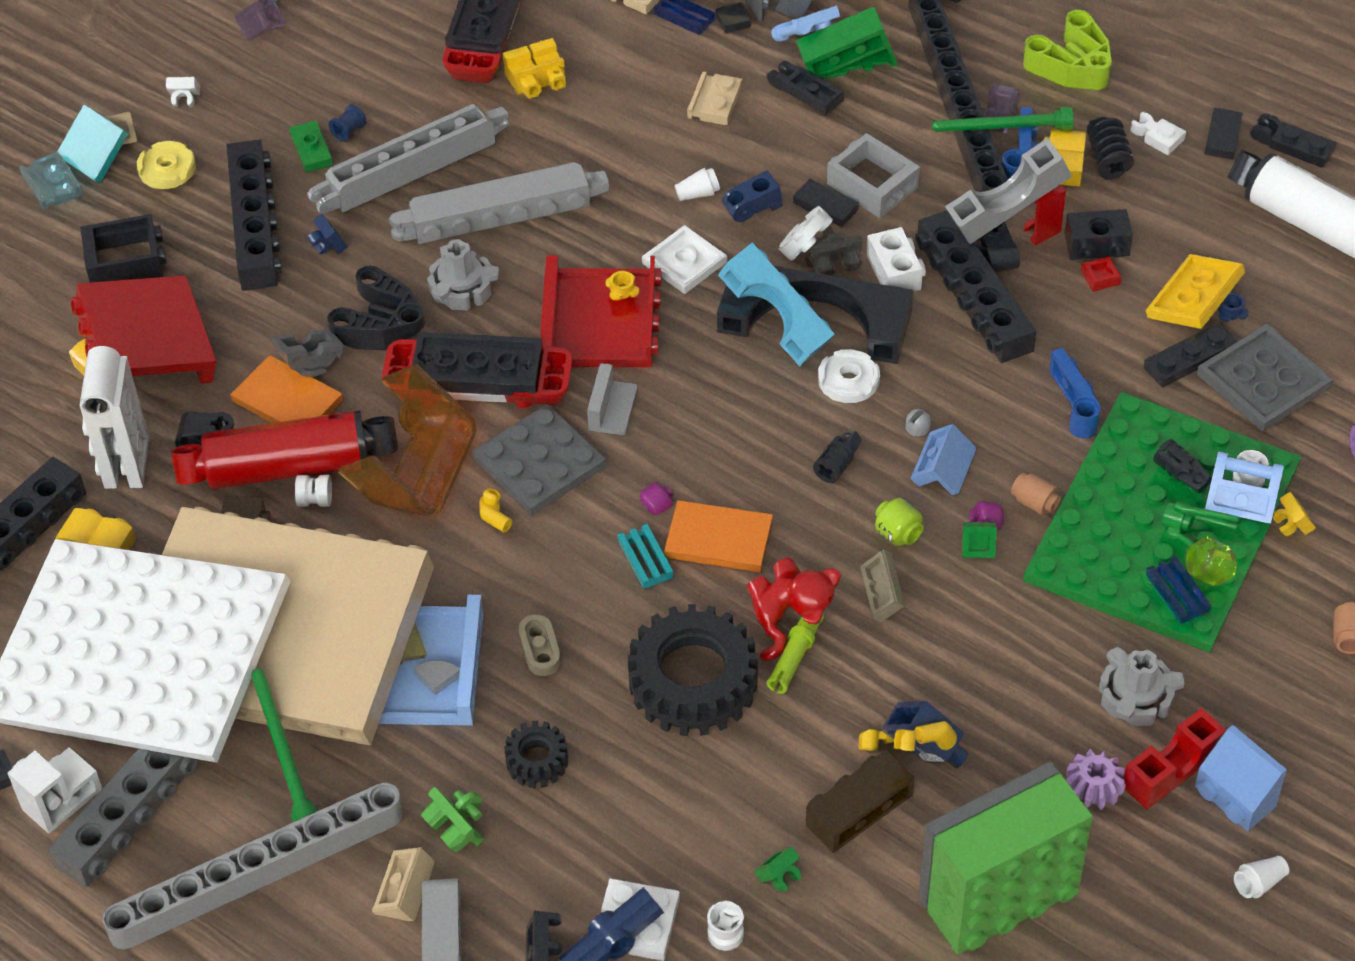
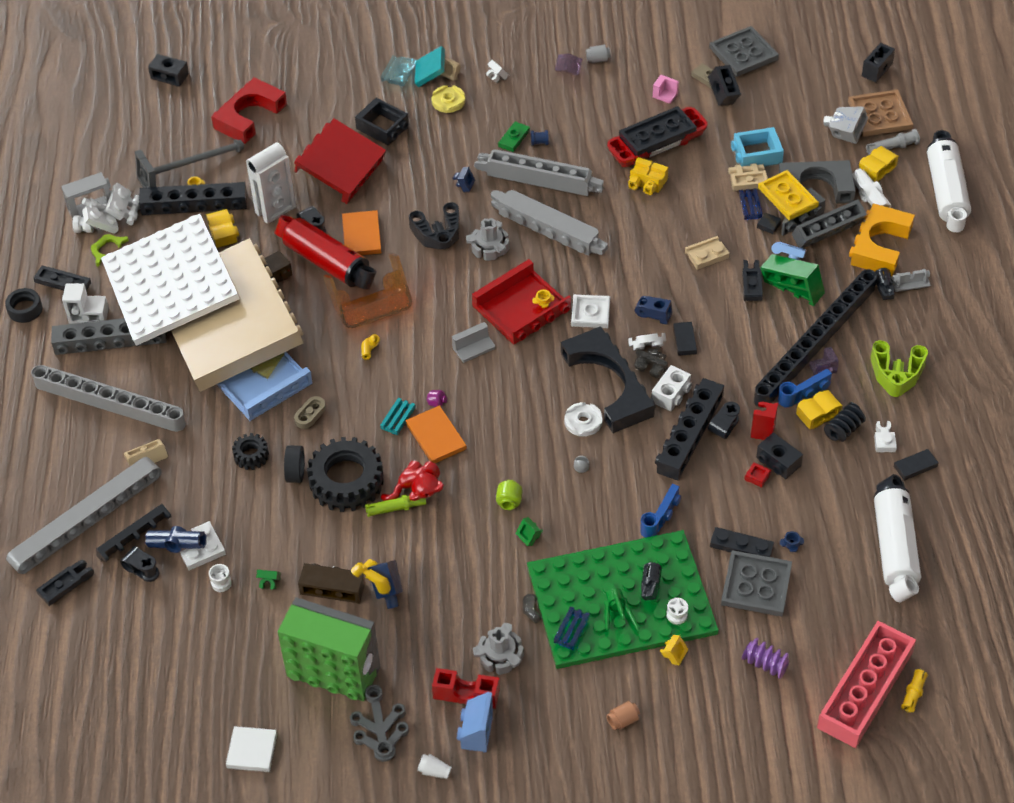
camera: 50 degrees right, 0 degrees up
(251, 215) = (449, 146): black brick -> none
(302, 806) = (149, 392): green piece -> none
(311, 354) = (385, 221): dark grey cylinder -> none
(313, 490) = (315, 277): white wheel -> none
(436, 674) = (258, 387): light grey tile -> none
(442, 809) = (192, 446): bright green hips -> none
(486, 366) = (439, 283): black piece -> none
(539, 459) = (415, 341): dark grey plate -> none
(622, 713) = (294, 464): none -> black tyre
(698, 185) = (641, 284): white cone -> none
(754, 275) = (584, 382): medium azure arch -> none
(837, 457) = (526, 446): black hinge -> none
(873, 199) = (728, 357): light grey window -> none
(882, 586) = (464, 512): dark tan plate -> none
(944, 459) = (567, 489): medium blue panel -> none
(987, 512) = (551, 527): magenta piece -> none
(1036, 493) = (580, 536): nougat brick -> none
(1038, 173) = (721, 394): light grey arch -> none
(1059, 119) = (834, 388): green piece -> none
(1095, 617) = (528, 608): none -> clear smoke arm
(1096, 779) = (425, 665): lavender gear -> none
(1143, 898) = (379, 727): none -> dark grey plant
(1195, 291) = (784, 518): yellow tile -> none
(1211, 561) = (596, 628): clear neon green head -> none
(1241, 498) = (652, 616): light blue plate -> none
(1293, 140) = (945, 498): black hinge -> none

